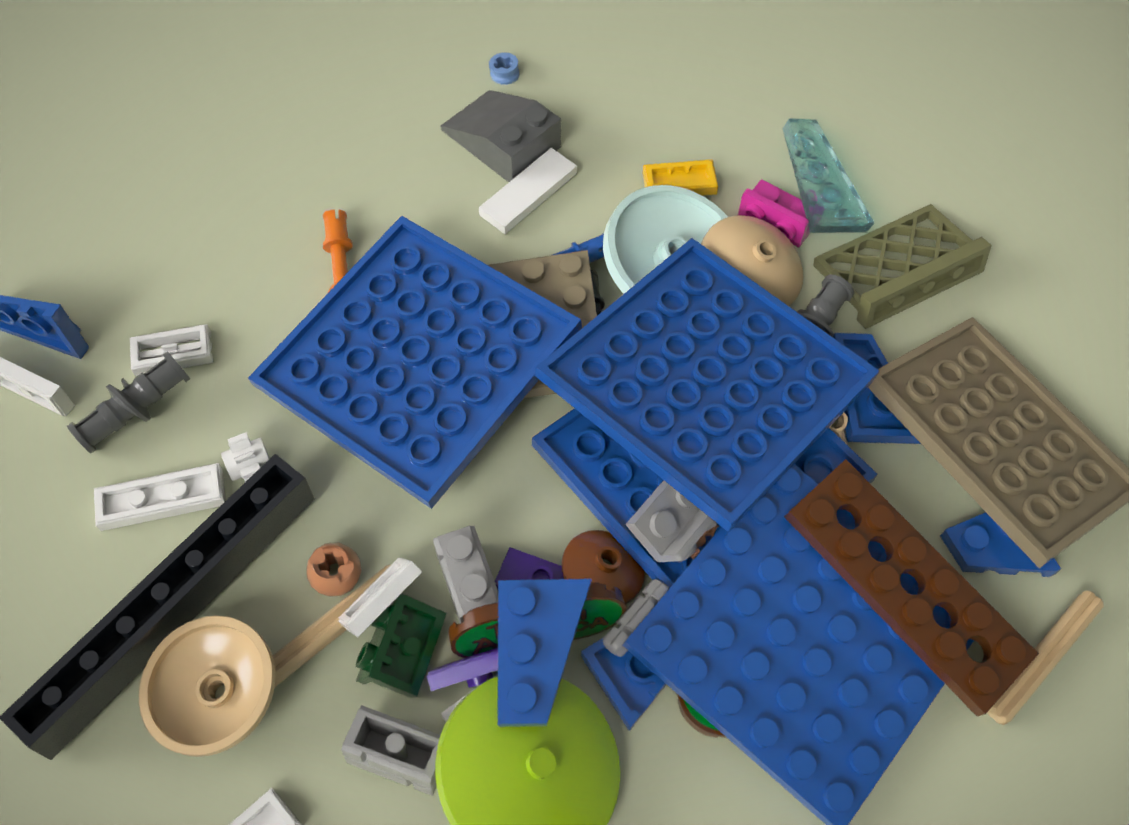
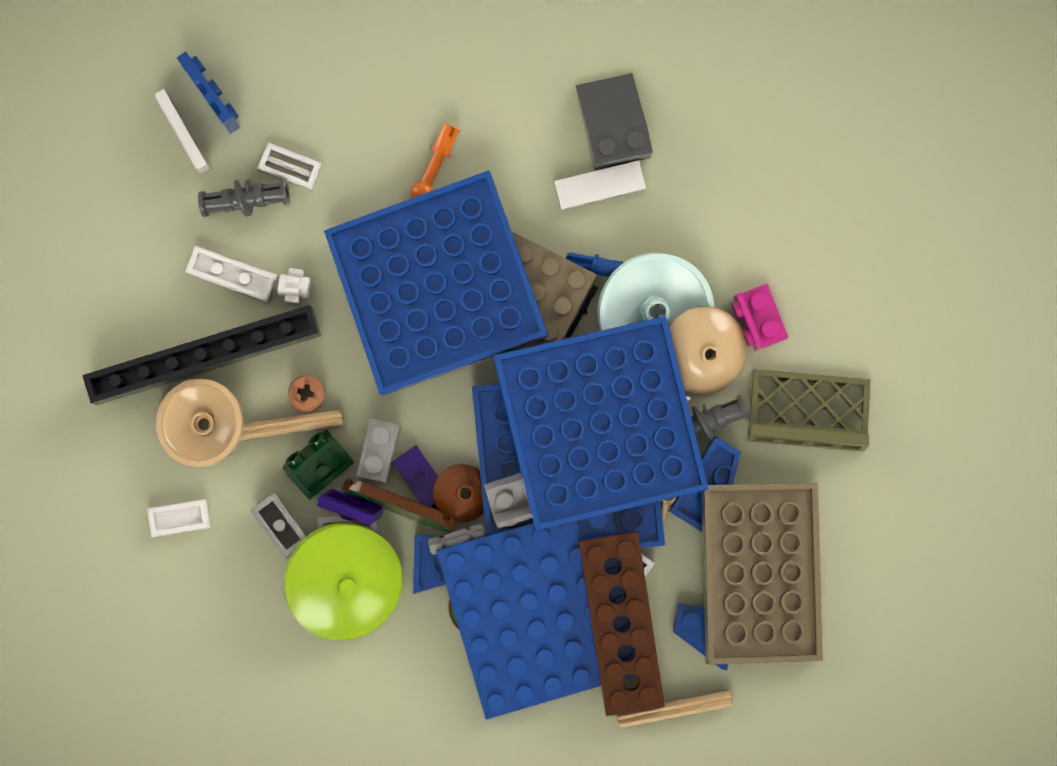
camera: 30 degrees right, 25 degrees up
(379, 596) = (320, 432): white tile -> none
(504, 68) = (649, 64): medium blue bush -> none
(533, 645) = (381, 525): blue wing -> none
(692, 175) = (710, 246): yellow plate -> none
(823, 184) = (805, 318): clear light blue wing -> none

